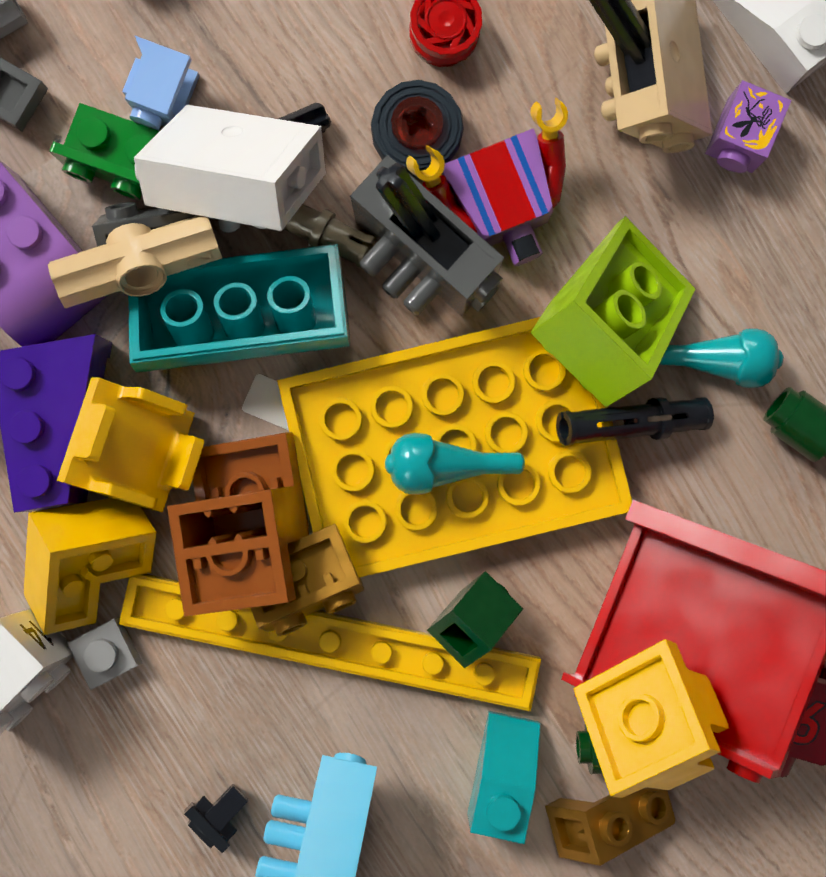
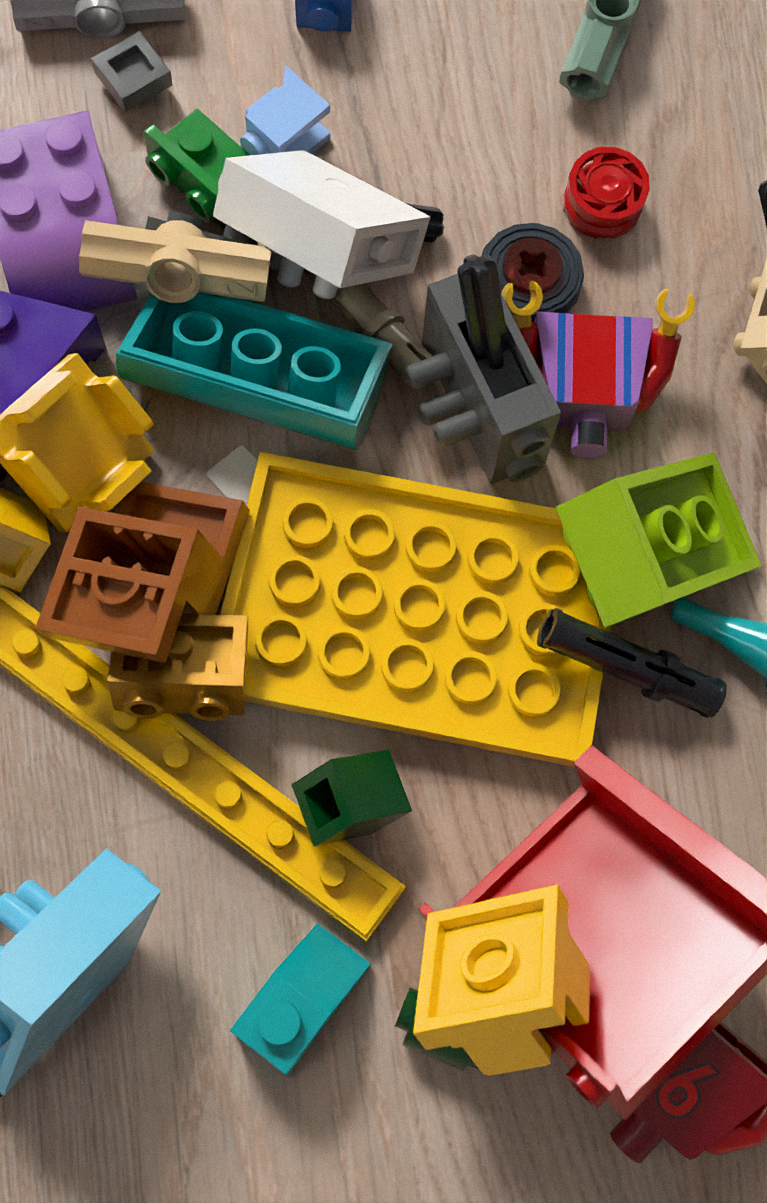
camera: 20 degrees right, 15 degrees down
(422, 463) = (375, 597): teal piece -> none
(609, 826) = (404, 1113): pearl gold bracket -> none

